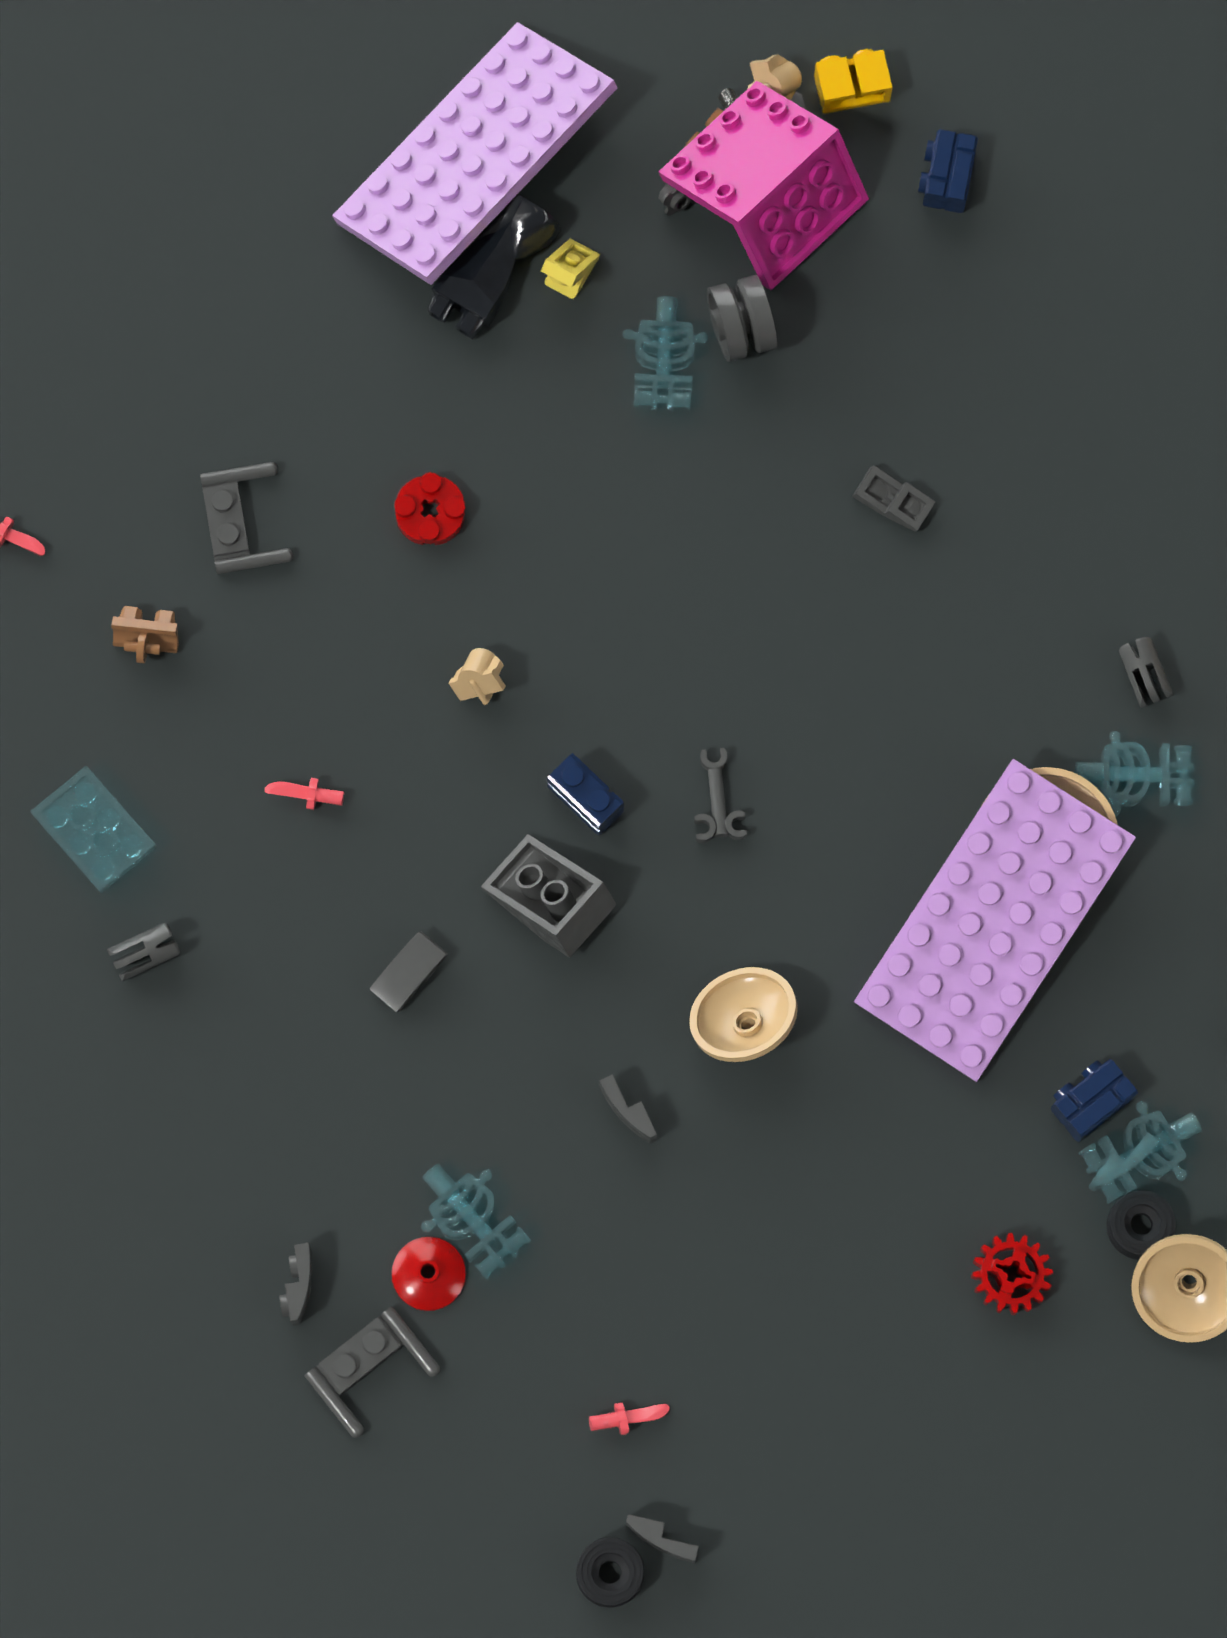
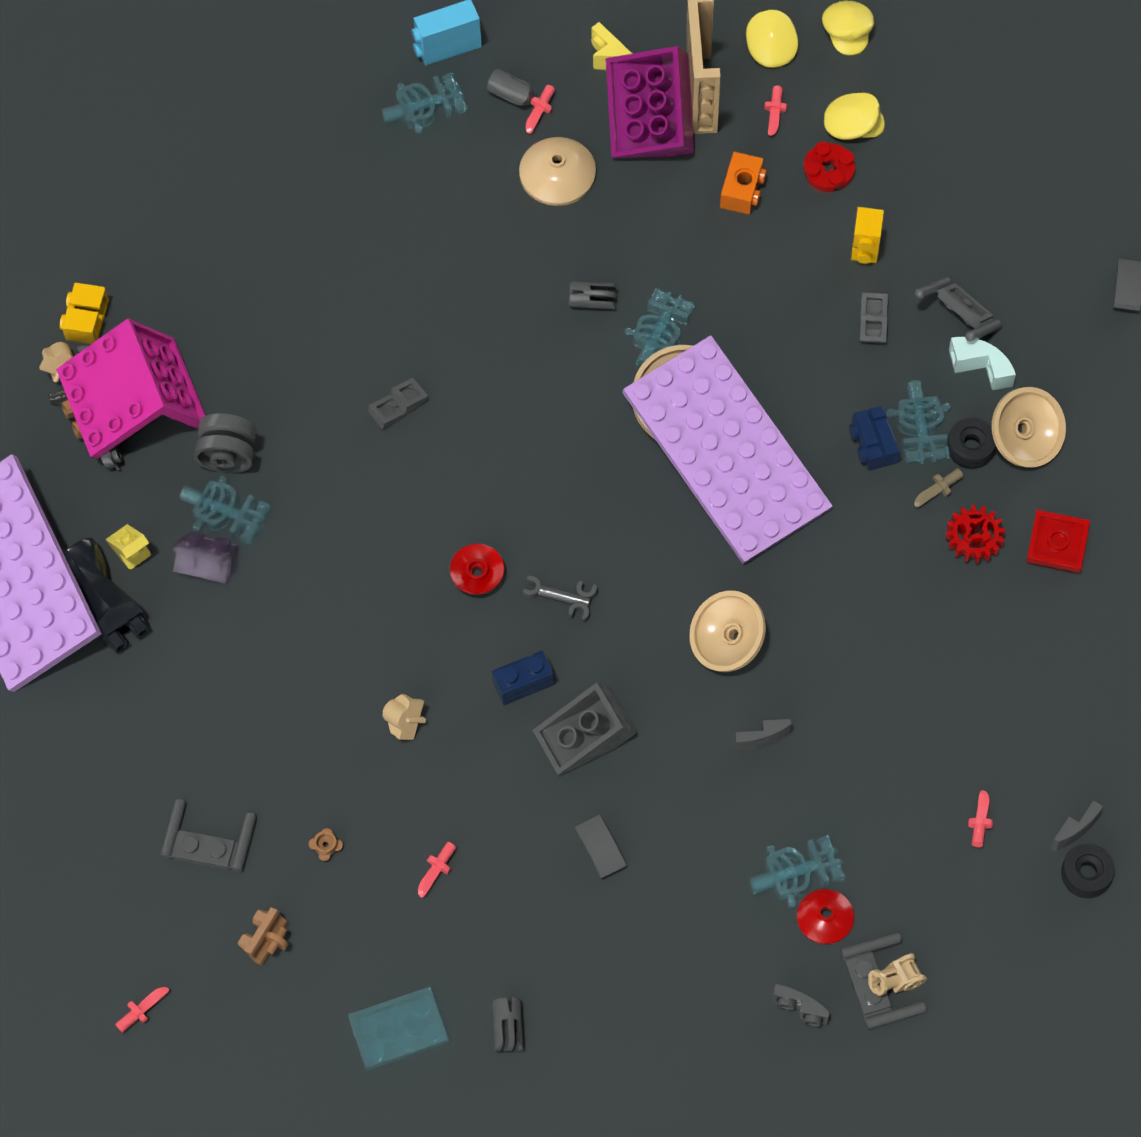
camera: 65 degrees left, 10 degrees down
(285, 644) = (322, 837): none -> medium nougat plate
(382, 1389) = (899, 975): none -> tan connector
(429, 529) = (249, 698): red plate -> none
(592, 359) = (204, 556): none -> clear purple bracket
(712, 667) = (474, 558): none -> red dish
(949, 170) = (180, 278): dark blue brick -> none
(1047, 1383) = (1058, 541): none -> red plate
(1065, 1207) = (941, 485): none -> dark tan piece
(1117, 1167) = (930, 435): clear light blue slope -> none

